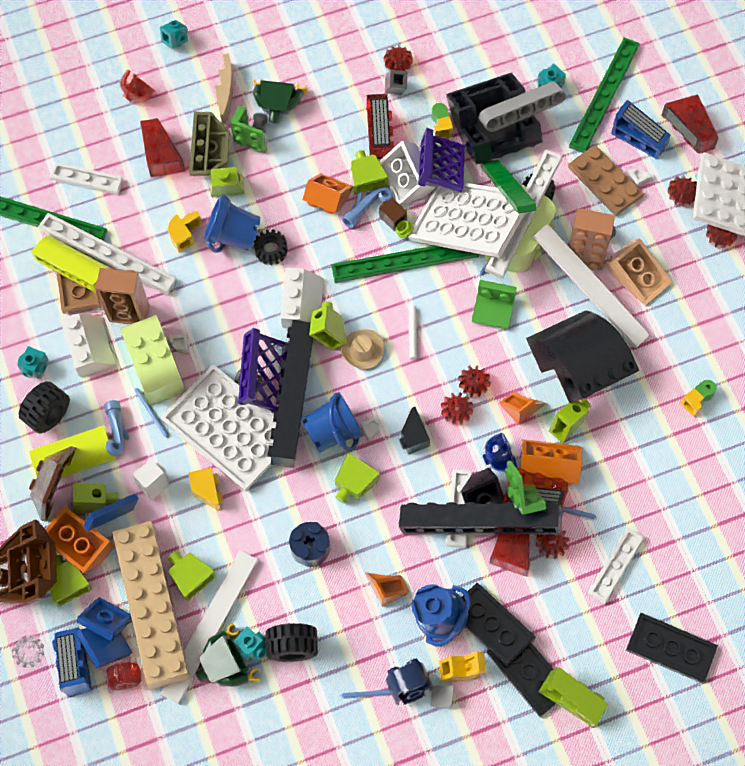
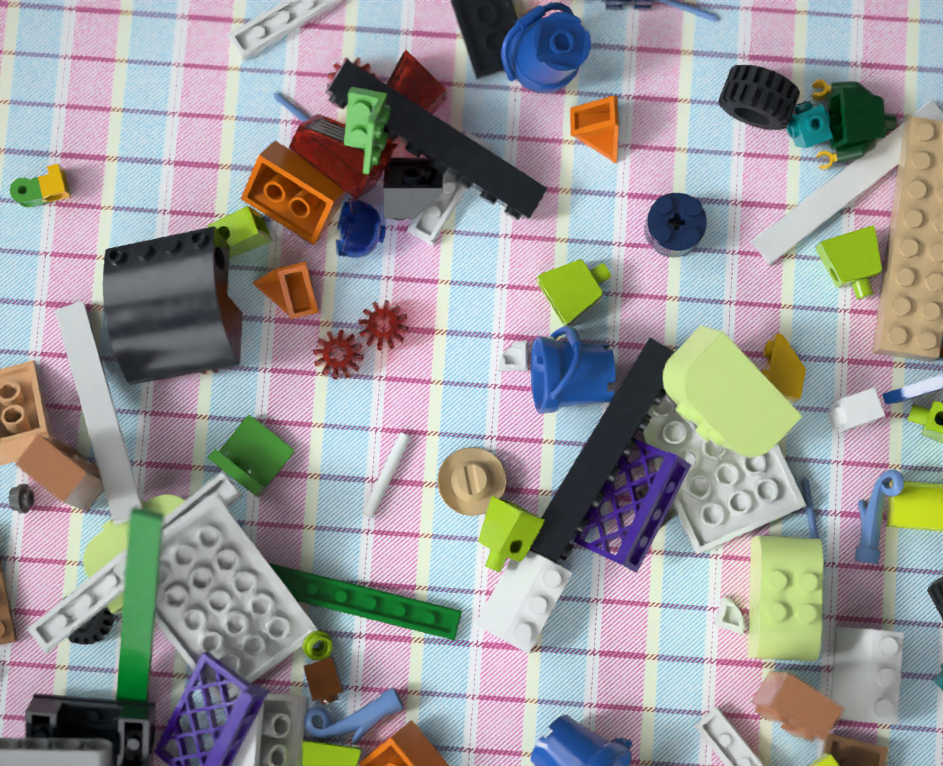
camera: 160 degrees left, 15 degrees up
(231, 442) = (727, 395): none -> yellowish green brick
(270, 237) = (513, 705): black tyre -> none
(413, 434) = (461, 317): black slope -> none

